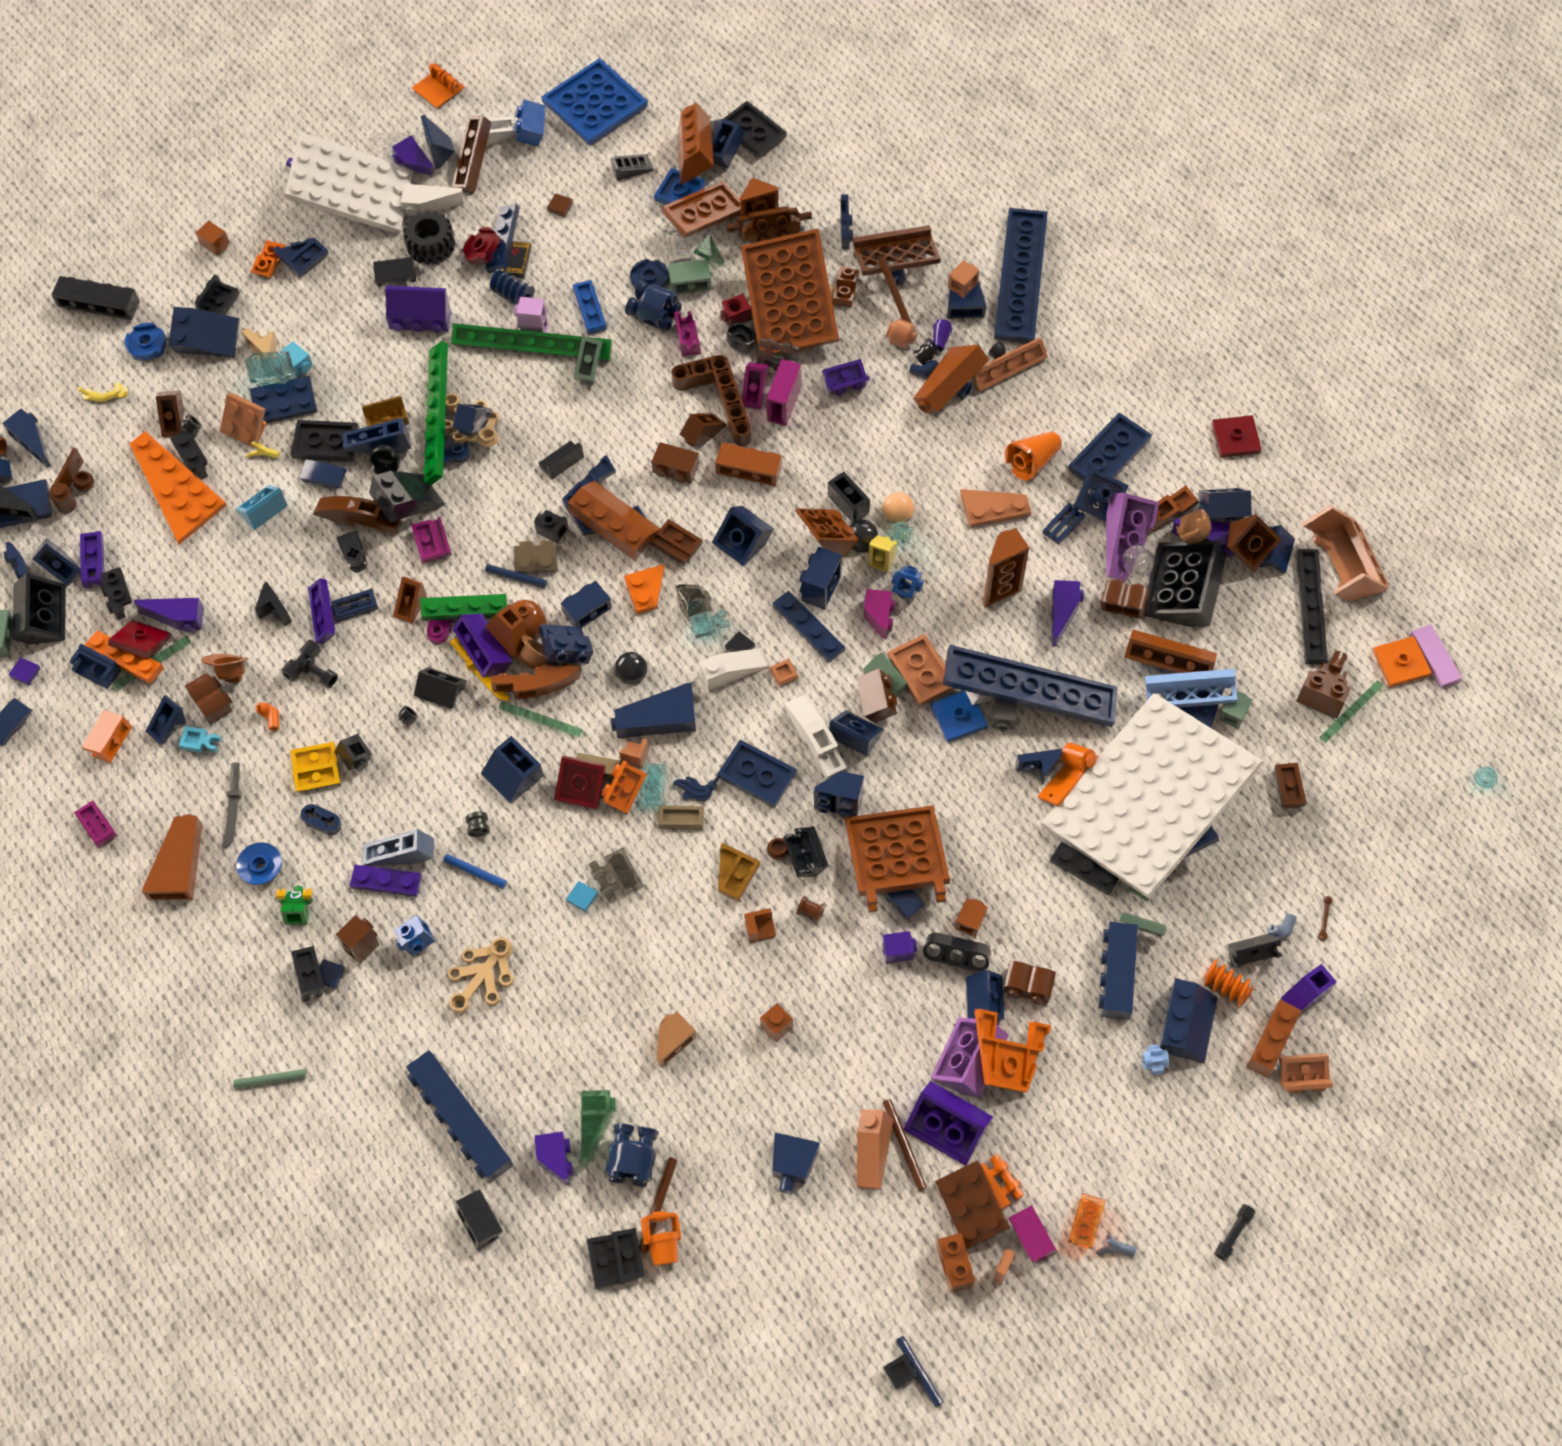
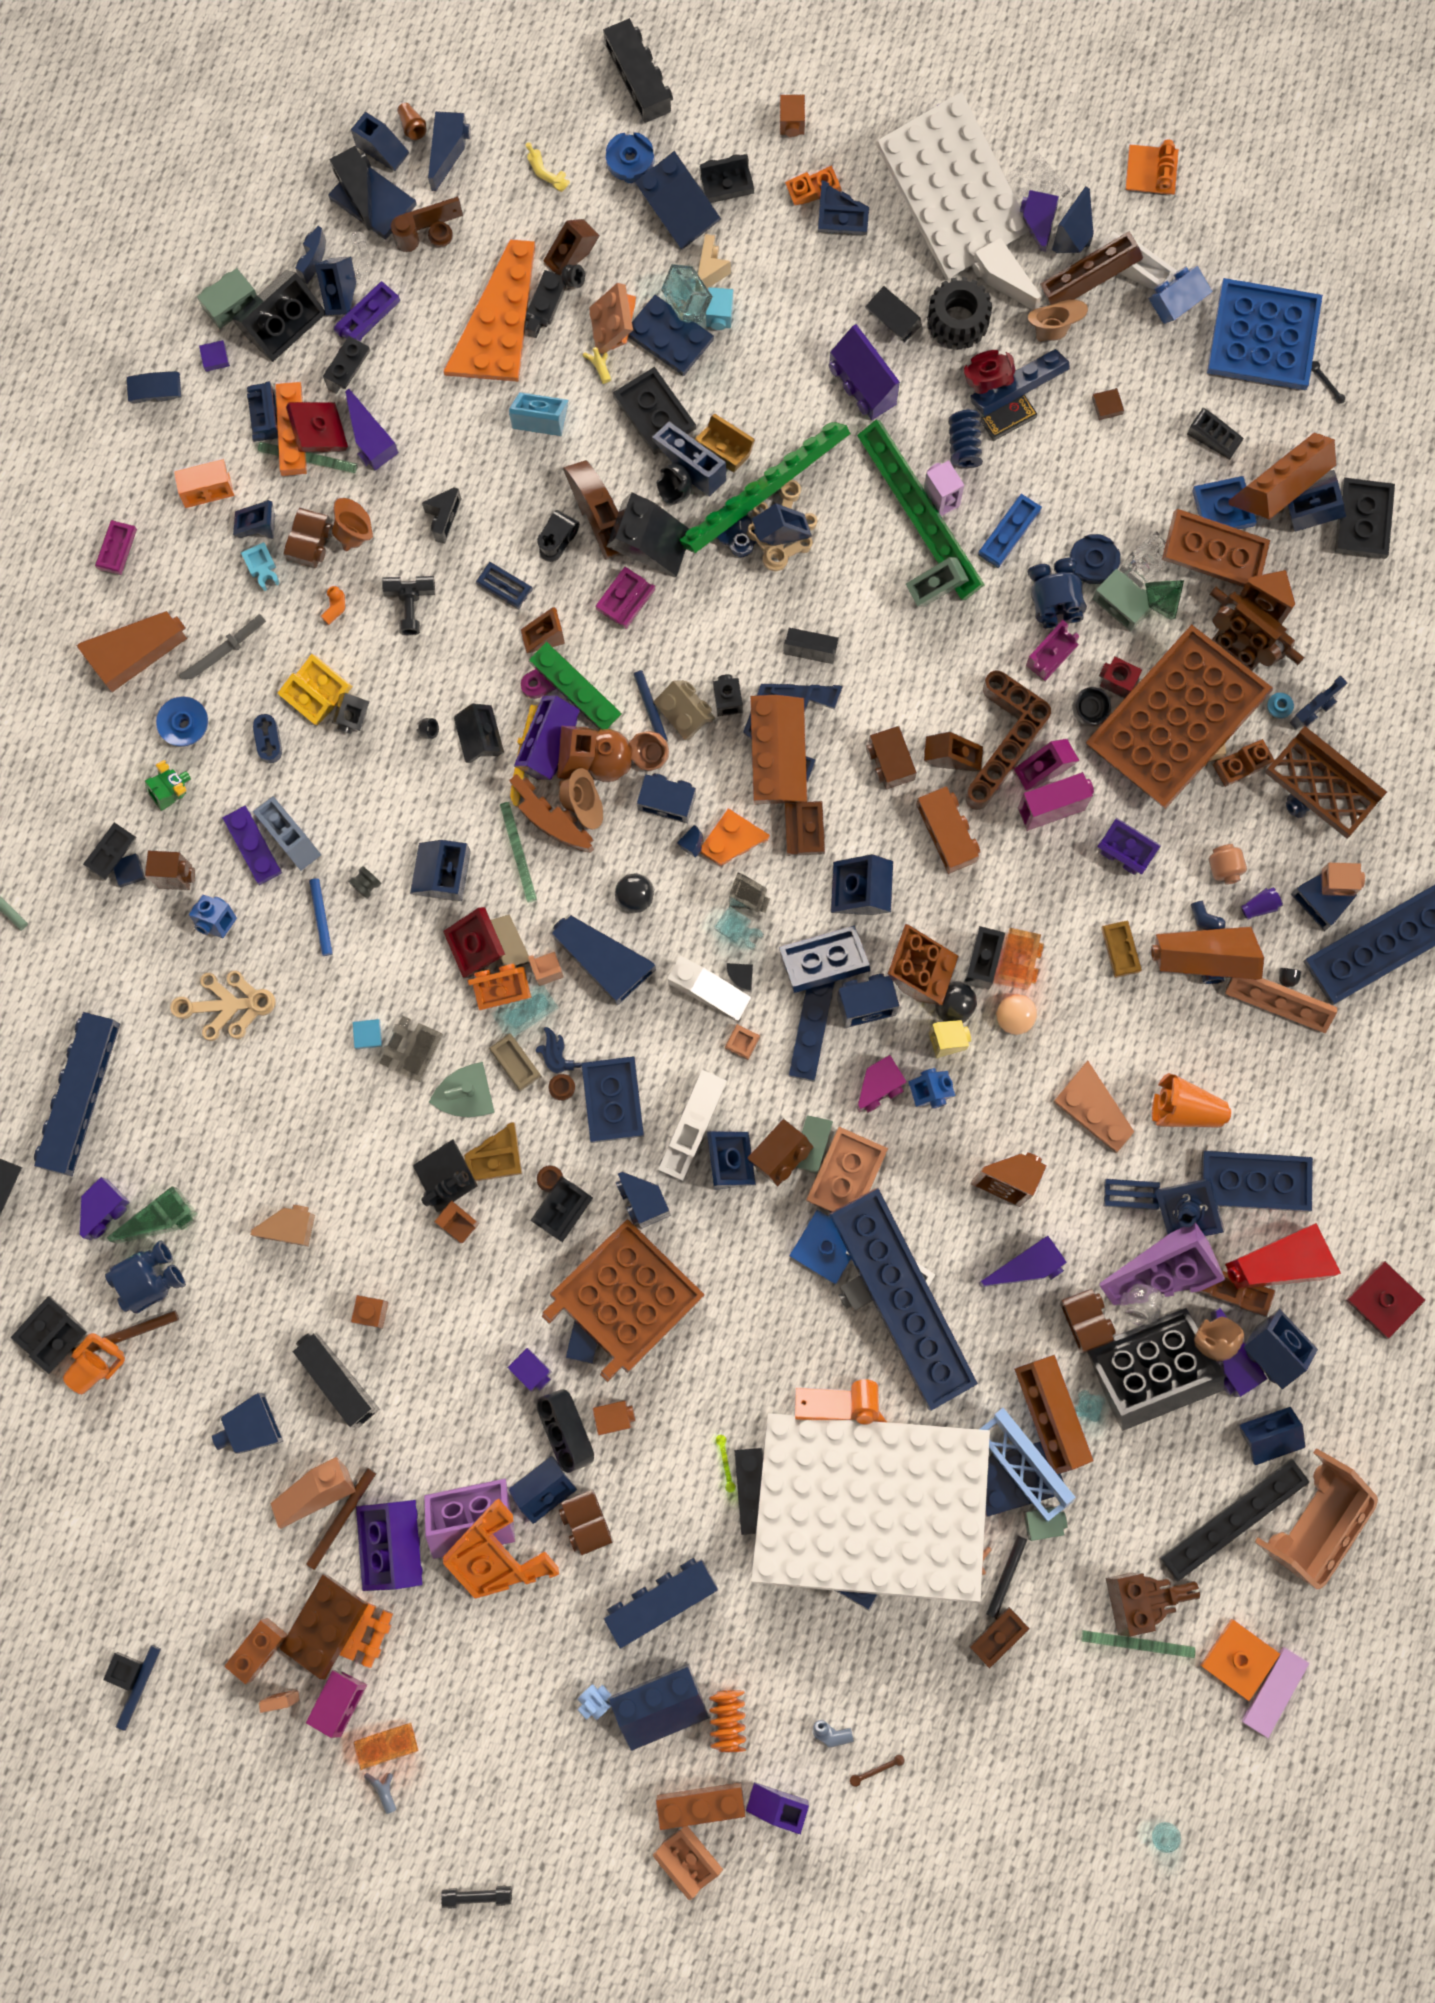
camera: 55 degrees right, 15 degrees up
(321, 611) = (472, 562): dark purple plate -> none
(323, 473) = (616, 439): dark blue slope -> none
(483, 192) = (1055, 320): none -> medium nougat piece
(546, 592) = (649, 750): none -> nougat hair
(565, 644) = (606, 814): dark blue plate -> none
(627, 611) = (692, 841): none -> dark blue tile
(668, 93) = (1340, 398): none -> black hinge
(674, 864) = (464, 1093): none -> sand green shield
(722, 799) = (561, 1087): none -> reddish brown plate
(722, 910) = (444, 1176): none -> black hinge
(771, 586) = (824, 959): none -> plate
(773, 359) = (1089, 763): clear smoke plate -> none
(807, 1076) = (335, 1380): none -> black slope
(810, 909) = (508, 1257): reddish brown bush -> none
(829, 249) = (1276, 711): none -> dark azure plate
(867, 479) = (1010, 971): none -> clear orange brick
(893, 289) = (1271, 820): reddish brown bar -> none
(900, 531) = (986, 1039): clear light blue plate -> none
(905, 424) = (1121, 949): none -> pearl gold plate
(927, 351) = (1226, 906): black bush -> none
(1037, 865) = (721, 1441): none -> clear neon green hinge
(1043, 760) = (837, 1370): dark blue slope -> none
(1143, 923) = (730, 1591): sand green tile -> none
(1173, 465) = (1289, 1260): none -> red slope
(1180, 630) = (1096, 1401): none -> clear light blue plate
(1244, 743) = (1006, 1577): none -> black bar
(1251, 540) = (1252, 1408): reddish brown slope -> none
(1253, 949) = (783, 1721): black hinge -> none

